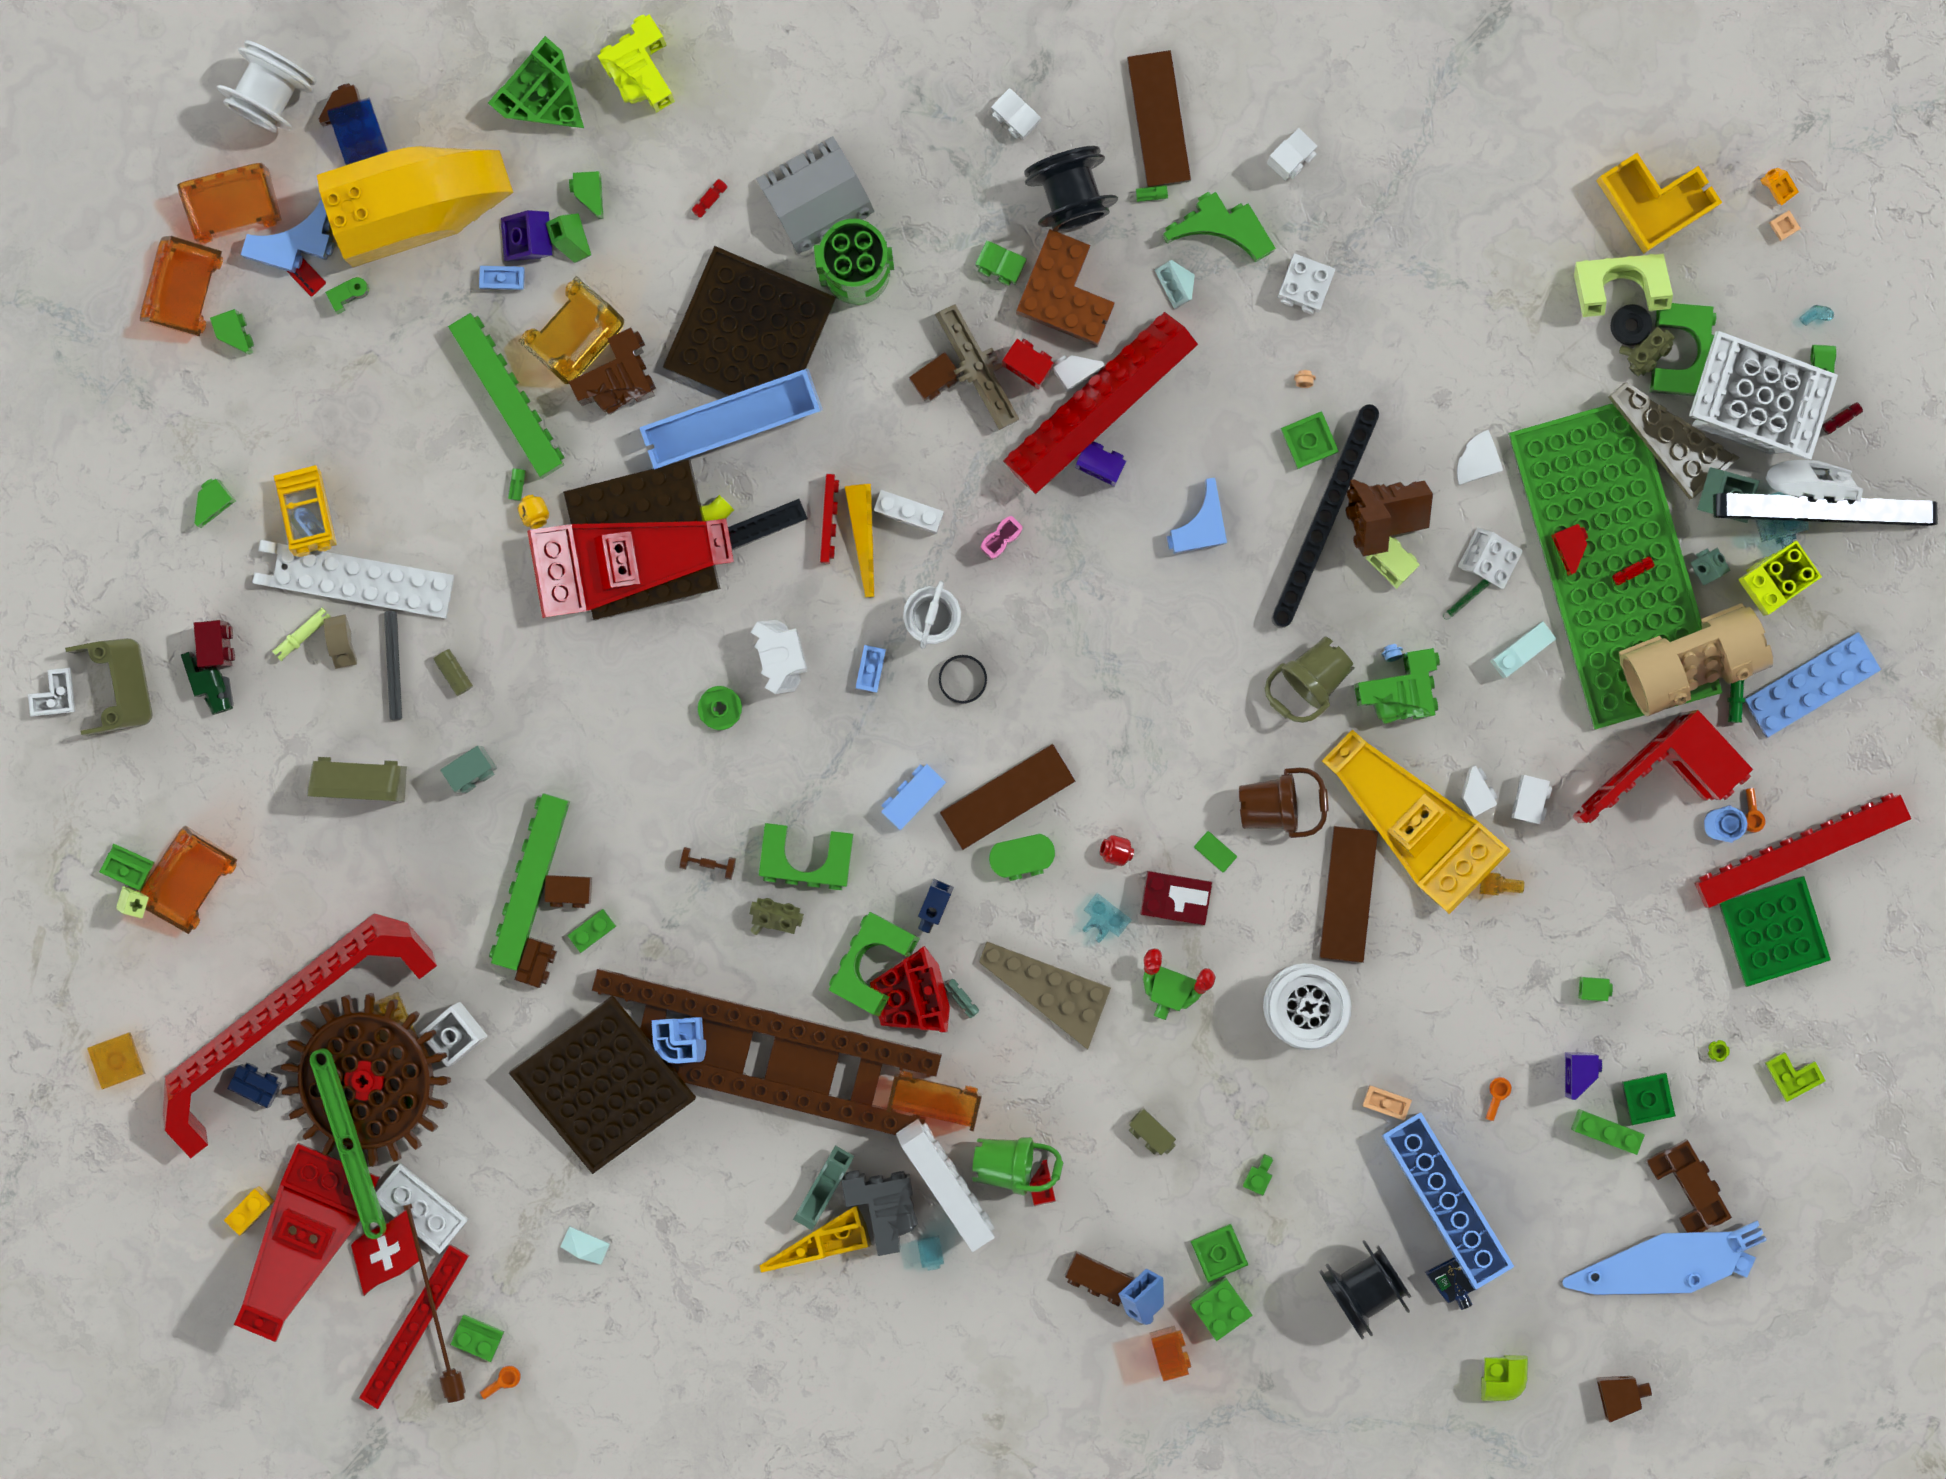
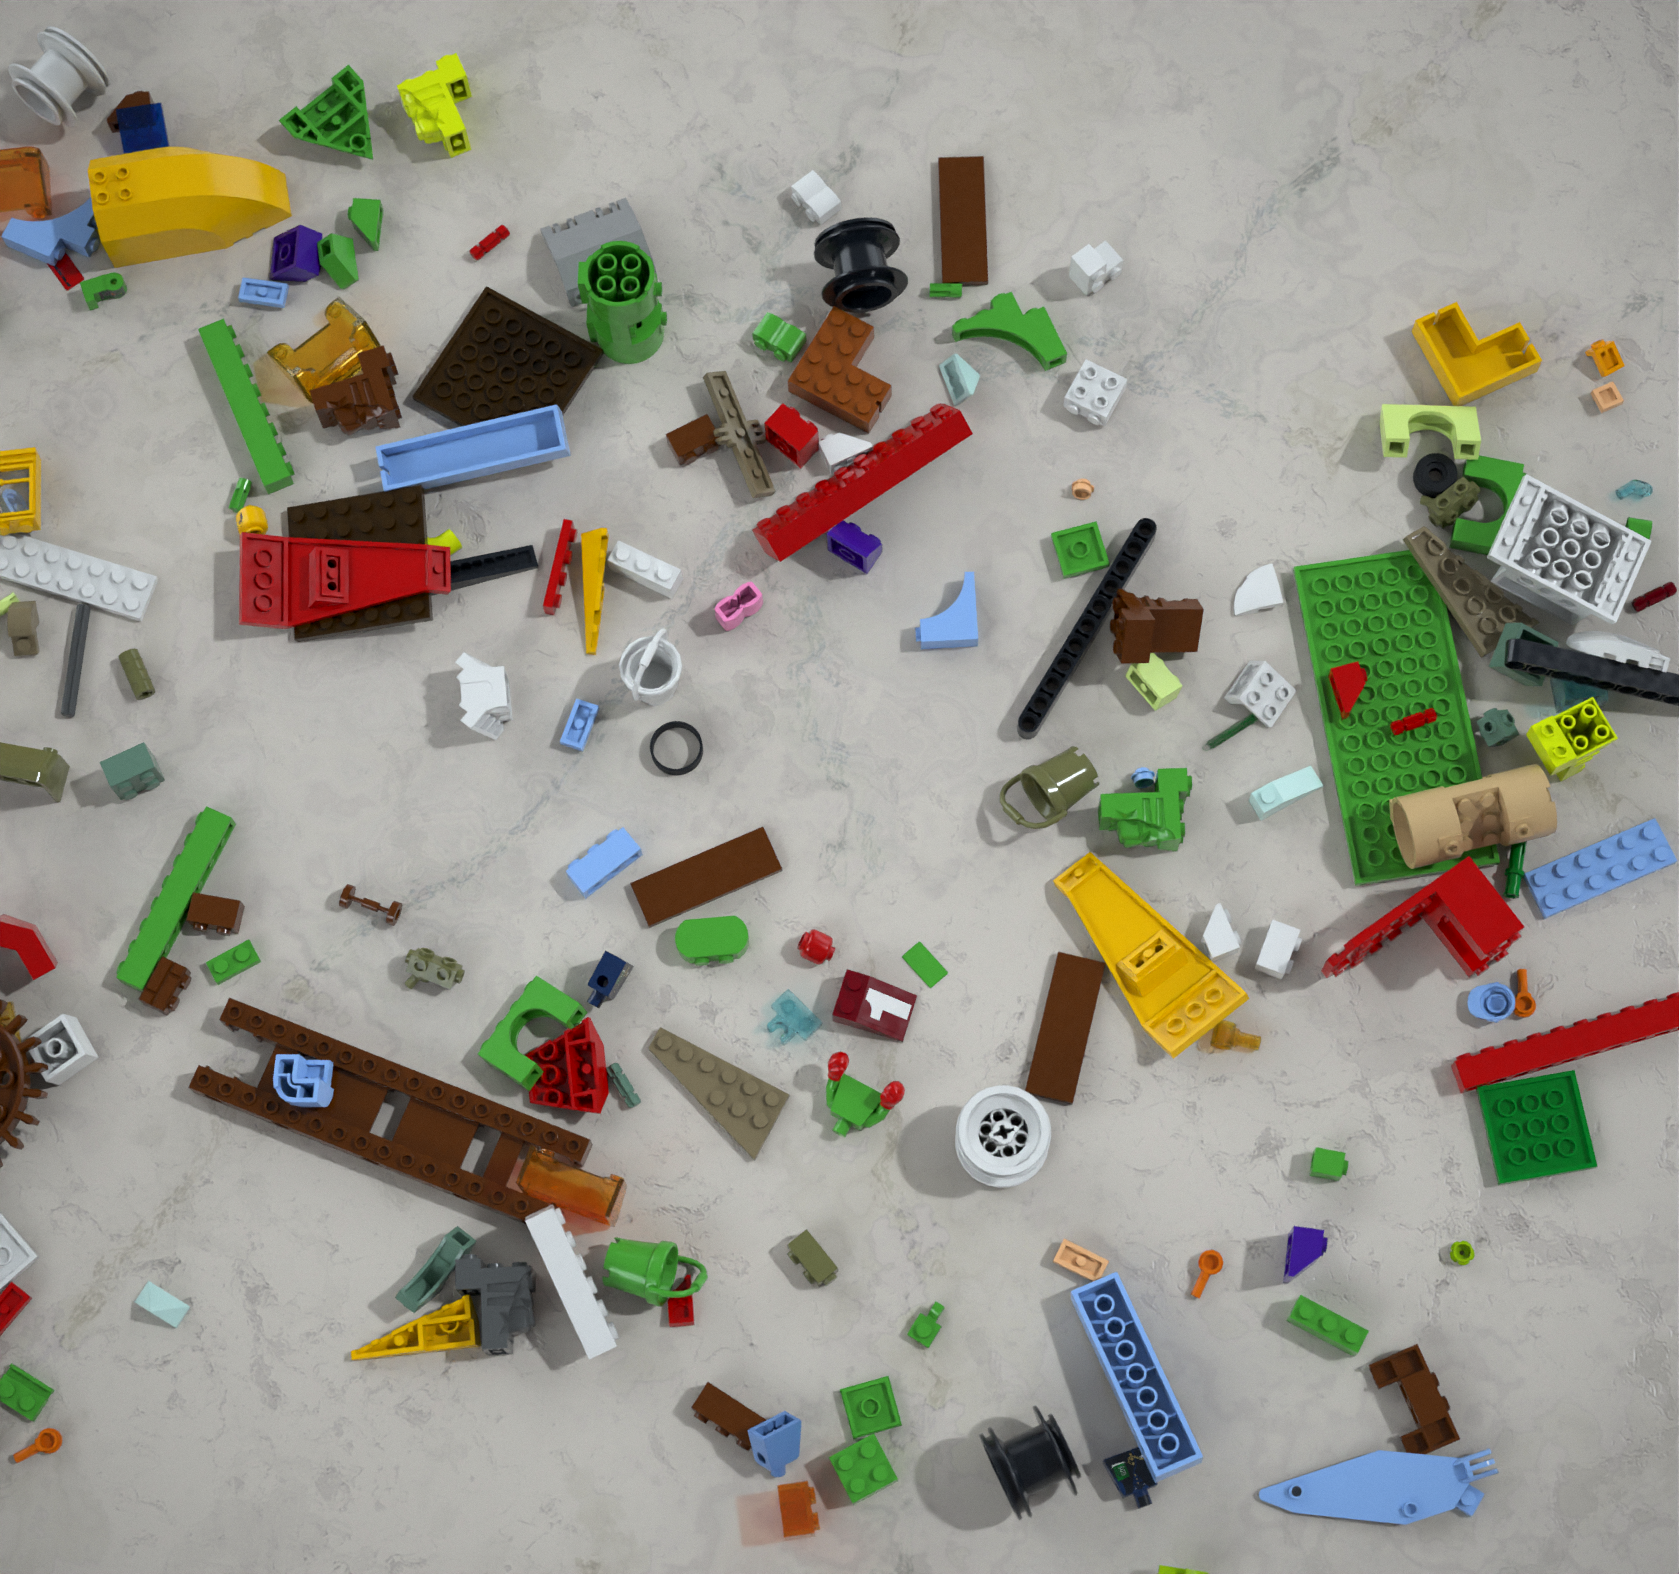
camera: 15 degrees right, 15 degrees down
(602, 1084) = (211, 1122): dark brown plate -> none
(730, 715) = (402, 736): bright green plate -> none
(775, 864) = (504, 930): bright green arch -> none
(930, 1252) = (545, 1361): clear light blue brick -> none
(1275, 804) = (996, 915): reddish brown piece -> none
(1648, 1098) = (1377, 1295): green plate -> none
(1792, 1082) = (1543, 1298): lime plate -> none

